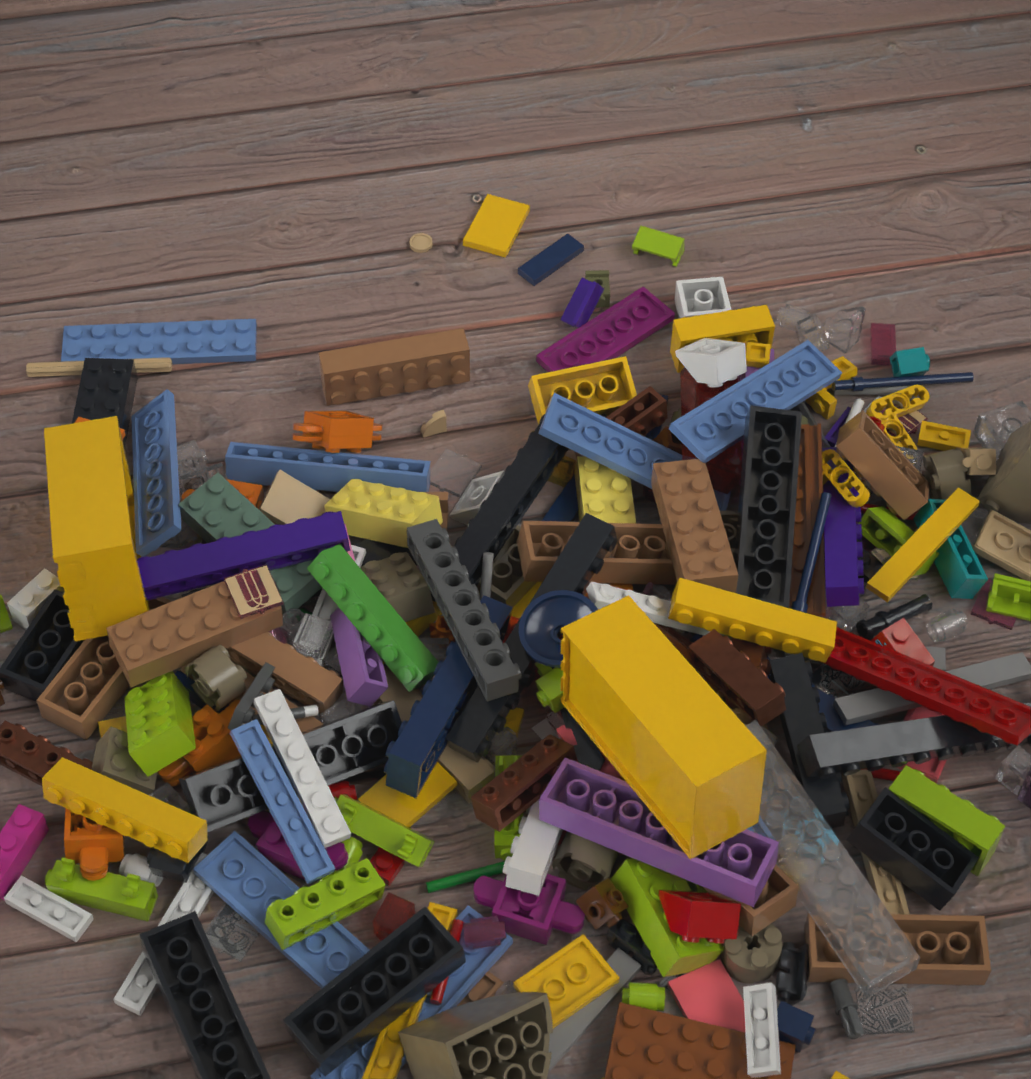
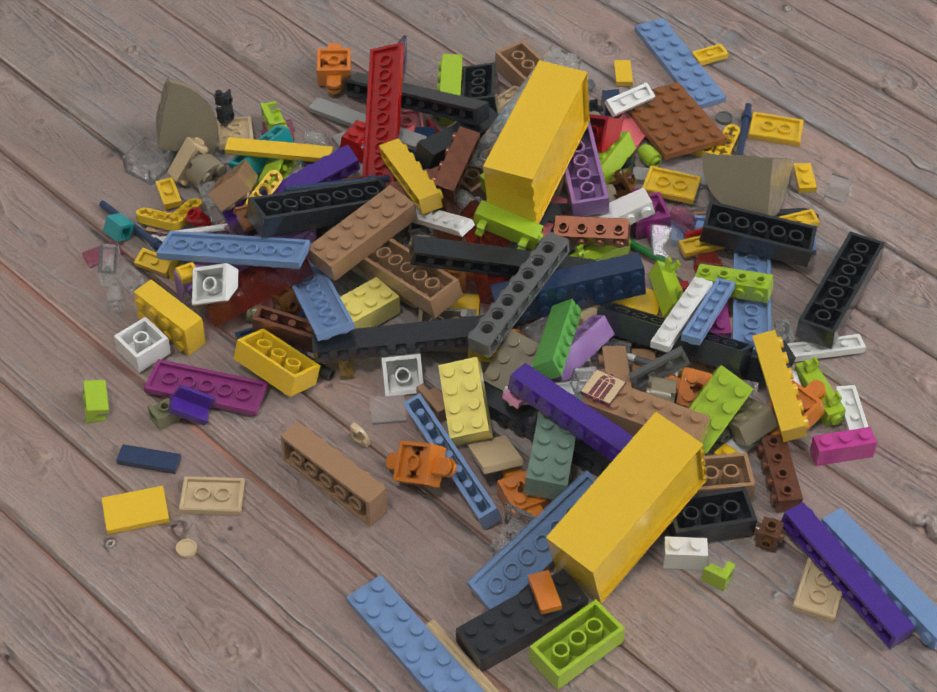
camera: 125 degrees left, 5 degrees down
(24, 446) = (576, 644): none -> lime brick
(463, 885) = (664, 241): none -> clear piece
(464, 285) = (212, 495): none -> tan tile
(543, 622) = (501, 230): dark blue dish -> none

